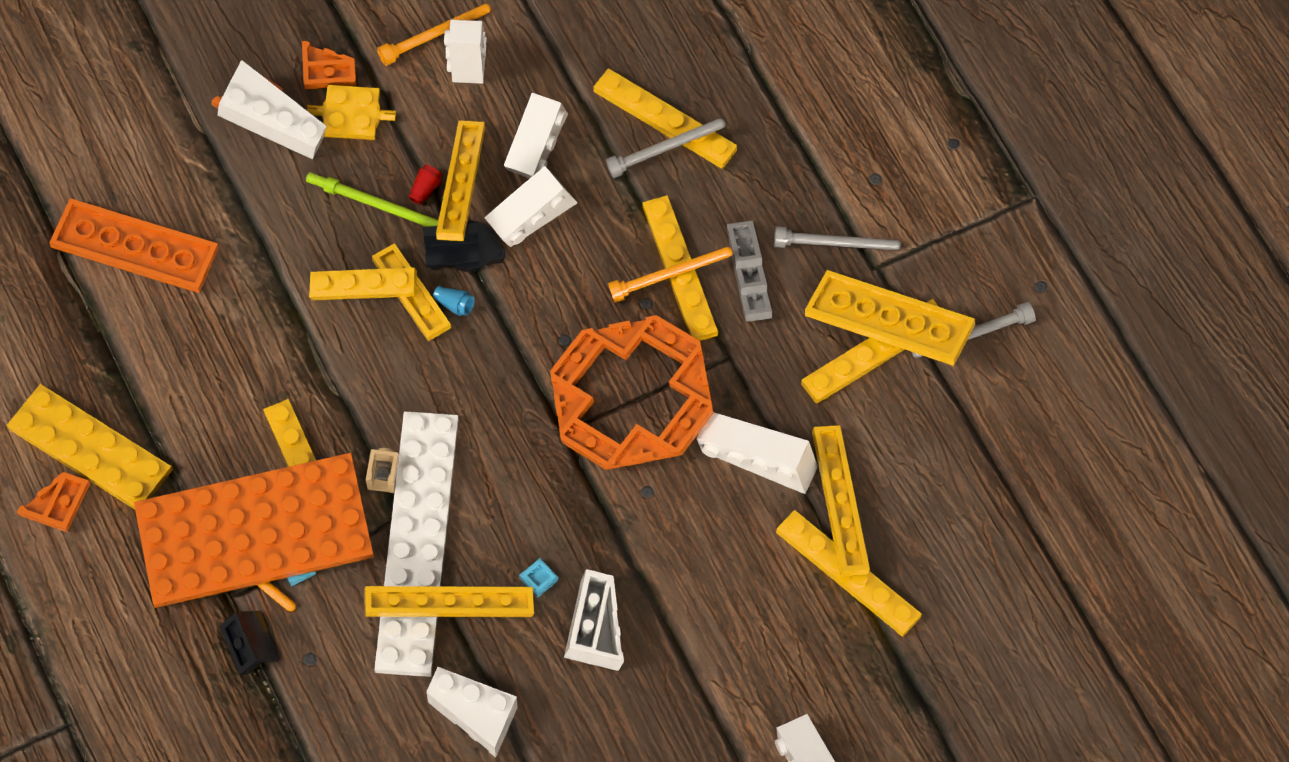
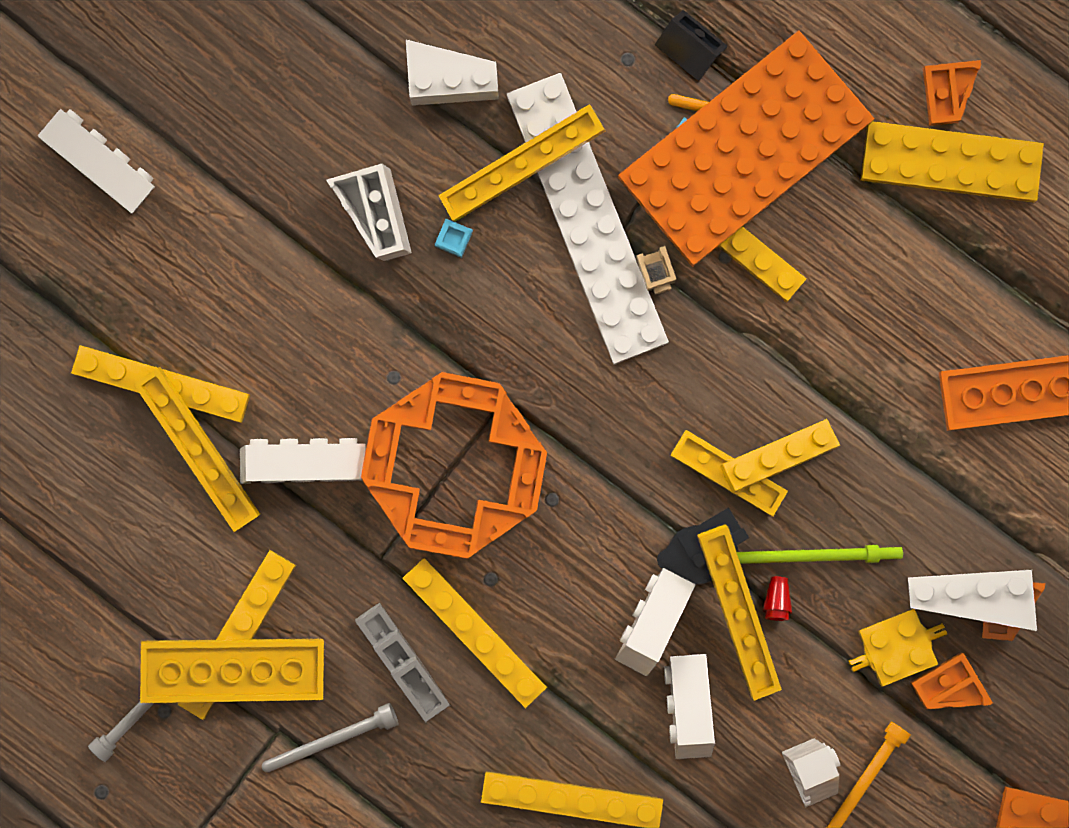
camera: 160 degrees right, 20 degrees up
(455, 300) = (680, 485): dark azure cone -> none
(618, 164) = (592, 717): light grey piece -> none
(621, 289) = (521, 576): light orange piece -> none

